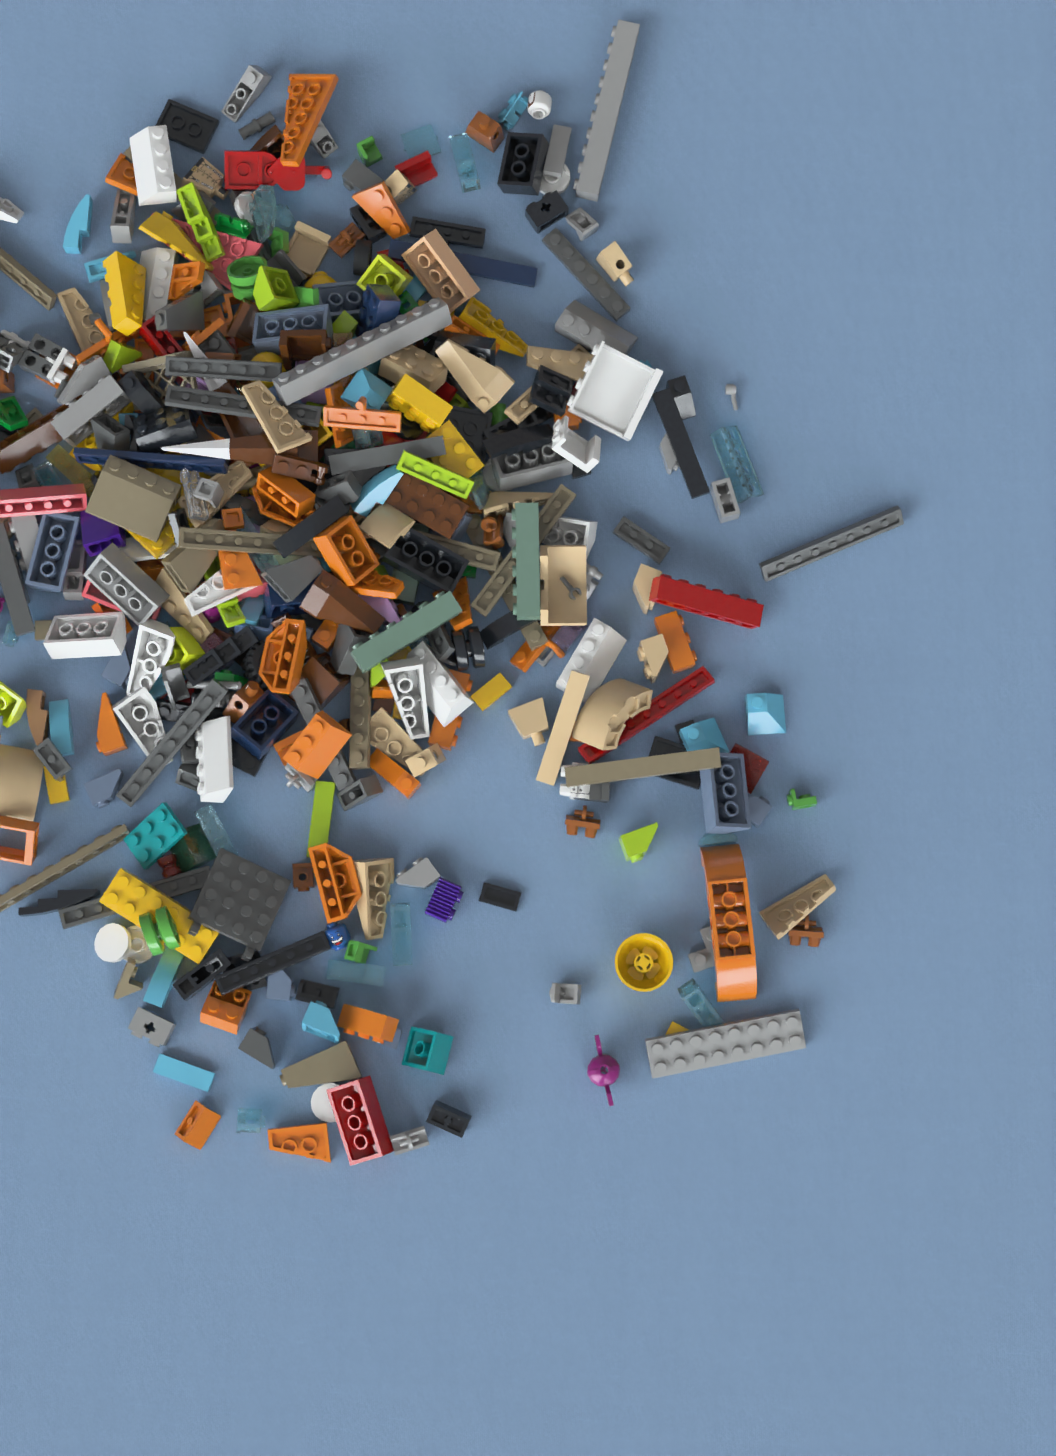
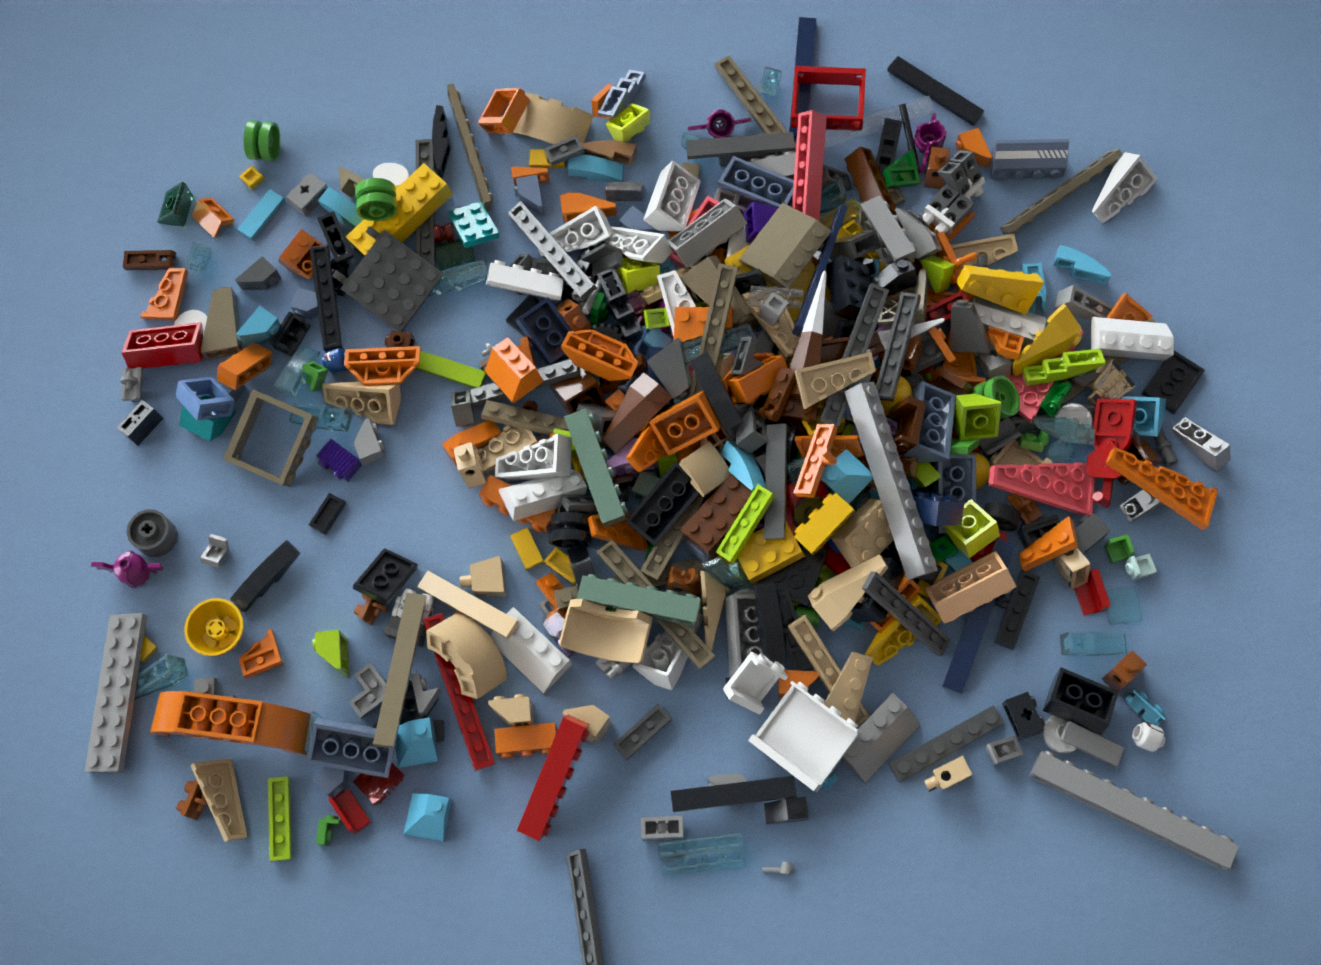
camera: 110 degrees right, 10 degrees down
(80, 693) = (623, 191): none -> flat silver panel
(83, 801) = (518, 172): none -> orange slope
(99, 1092) = (261, 140): none -> bright green wheel
(140, 1098) = (252, 177): none -> yellow tile
(193, 1171) = (176, 206): none -> slope
(228, 140) = (1149, 415): none -> medium azure slope
(232, 518) = (742, 326): orange plate -> none
(263, 1176) = (149, 260): none -> reddish brown plate
(270, 507) = (744, 358): none -> dark grey slope
(322, 215) = (1049, 483): none -> coral wing
(382, 131) = (1140, 566): none -> light aqua bracket
(422, 1059) = (201, 409): none -> medium blue window
(424, 1001) = (244, 429): none -> dark tan window
(482, 321) = (906, 613): none -> dark grey plate
(499, 654) = (560, 564): none -> yellow tile
(551, 390) = (817, 668): black slope -> none
(552, 1056) = (152, 533): none -> dark grey wheel
(553, 815) = (385, 576): none -> black tile
(570, 588) = (603, 640): dark grey hand -> none
(578, 935) = (265, 575): none -> black slope
(656, 914) = (261, 656): none -> orange wing
(662, 743) = (424, 699): none -> light grey slope
(664, 794) = (373, 693): none -> light grey plate
(778, 785) = (350, 811): none -> red panel
(801, 848) = (279, 819): none -> lime plate

